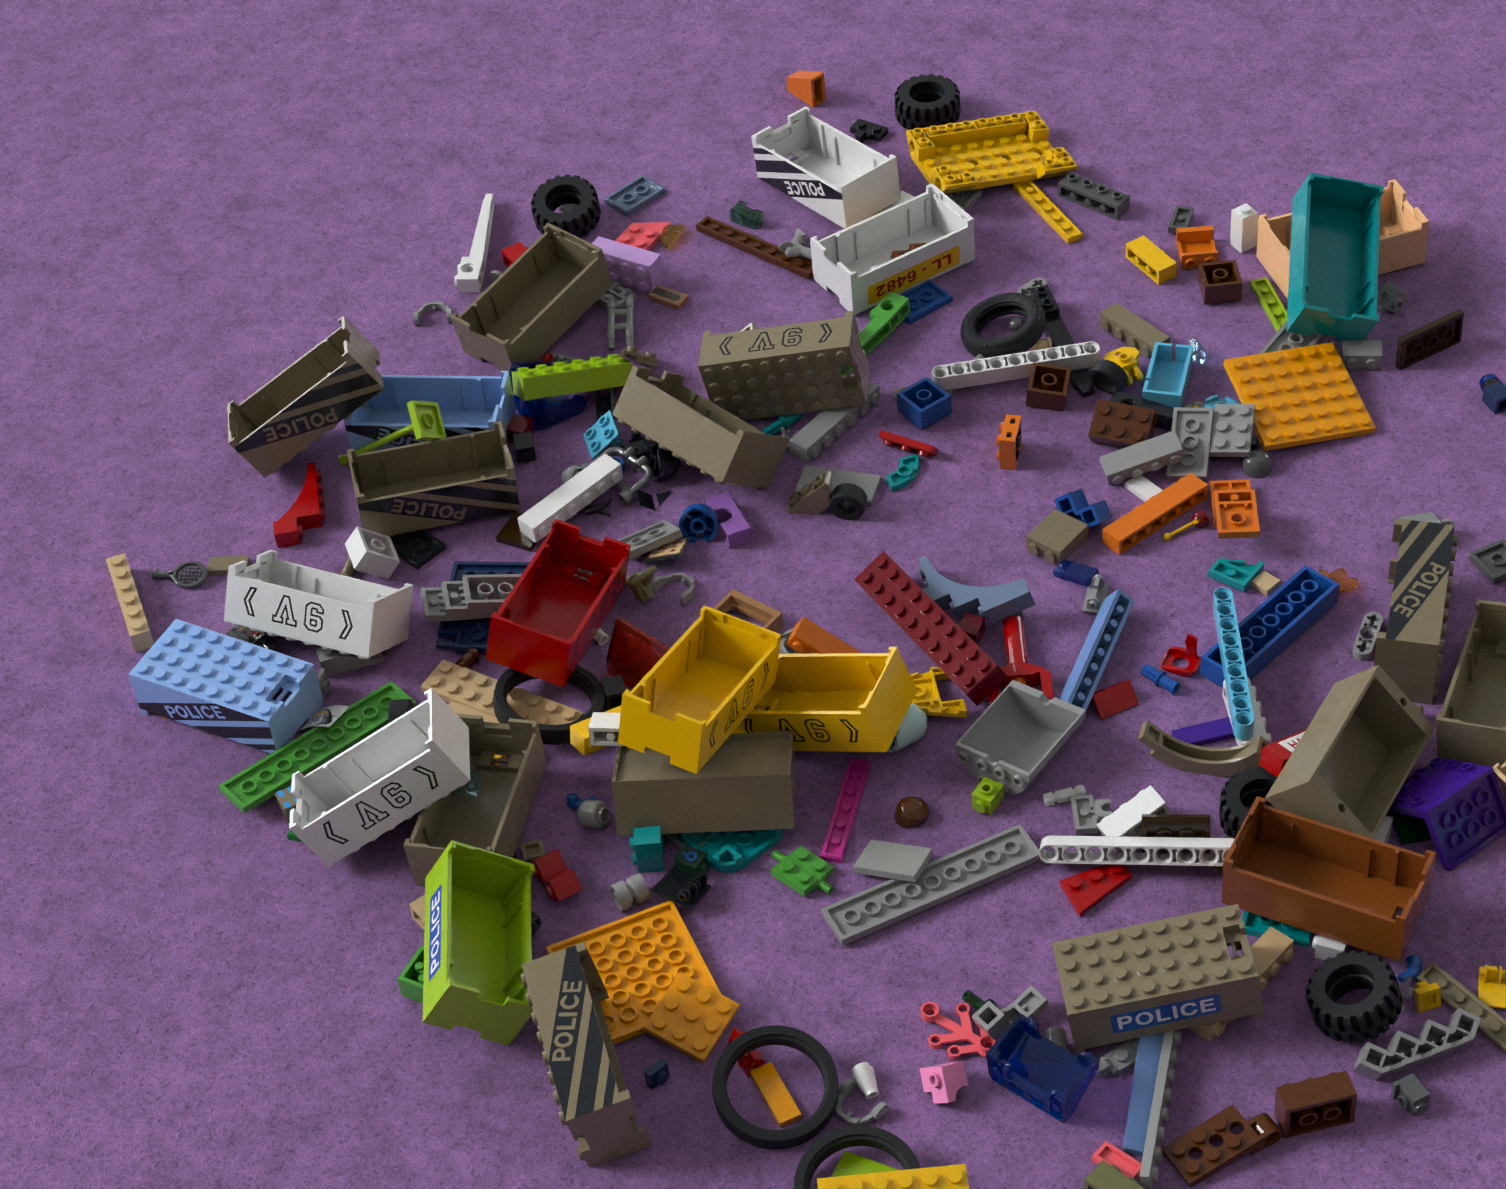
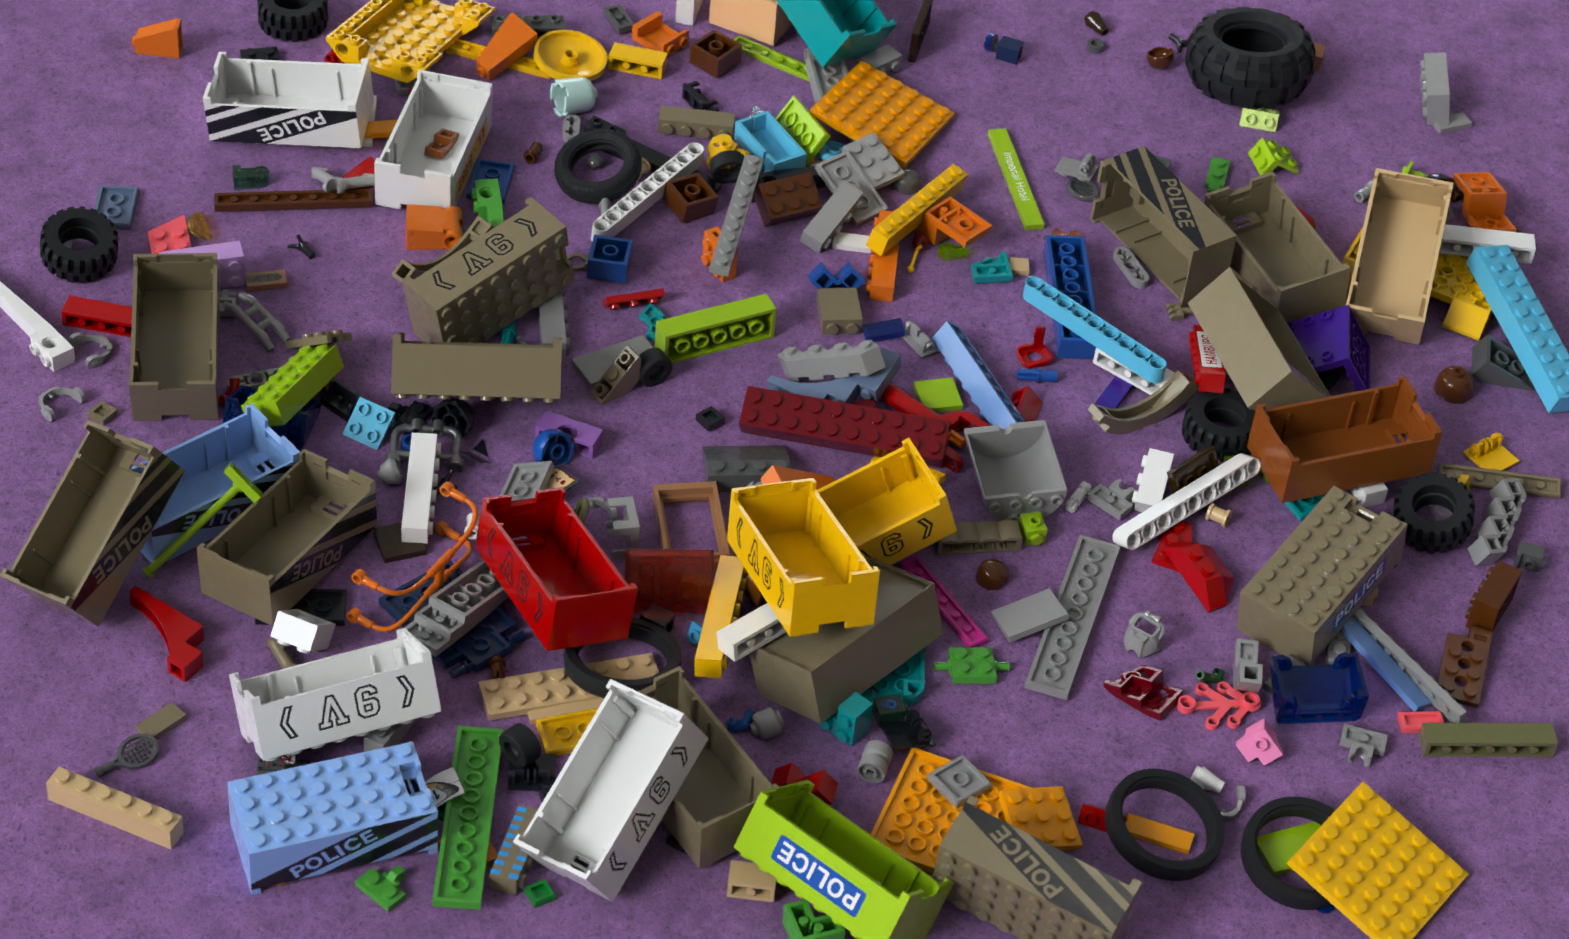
camera: 55 degrees left, 0 degrees up
(215, 759) = (383, 887): none -> bright green hinge
(449, 336) = (102, 413): none -> dark tan tile
(495, 555) = (437, 570): none -> orange bar
(668, 947) = (959, 780): none -> light grey tile
(674, 610) = (627, 527): none -> light grey panel
(722, 286) = (302, 246): none -> black bar
(823, 305) = (433, 227): none -> orange piece
(830, 612) = (741, 464): none -> dark grey slope
(848, 565) = (710, 418): none -> black plate
(909, 978) = (1141, 691): none -> dark red slope
(931, 498) = (716, 328): none -> lime brick
(934, 776) = (982, 538): none -> dark tan brick
(965, 944) = (1139, 640): none -> light grey helmet
(973, 295) = (532, 153): none -> reddish brown pin
(977, 568) = (837, 361): none -> light grey brick
(1037, 1142) = (1362, 743): none -> light grey plate
(1047, 414) = (736, 215): none -> light grey plate
(1048, 201) = (506, 47): none -> orange slope
(1055, 649) = (938, 394): none -> lime tile
(1058, 263) = (573, 95): none -> light aqua cylinder
(1085, 909) = (1202, 572): none -> red wedge
(1095, 231) = (570, 55): none -> yellow dish
(1163, 878) = (1218, 514): none -> tan bush
(1164, 314) = (696, 98): none -> black hinge
(1199, 487) = (911, 213): none -> yellow brick
(1206, 375) = (803, 127): none -> lime tile
(1212, 540) = (951, 251): none -> clear neon green cone
(1360, 510) = (1015, 179): none -> lime tile

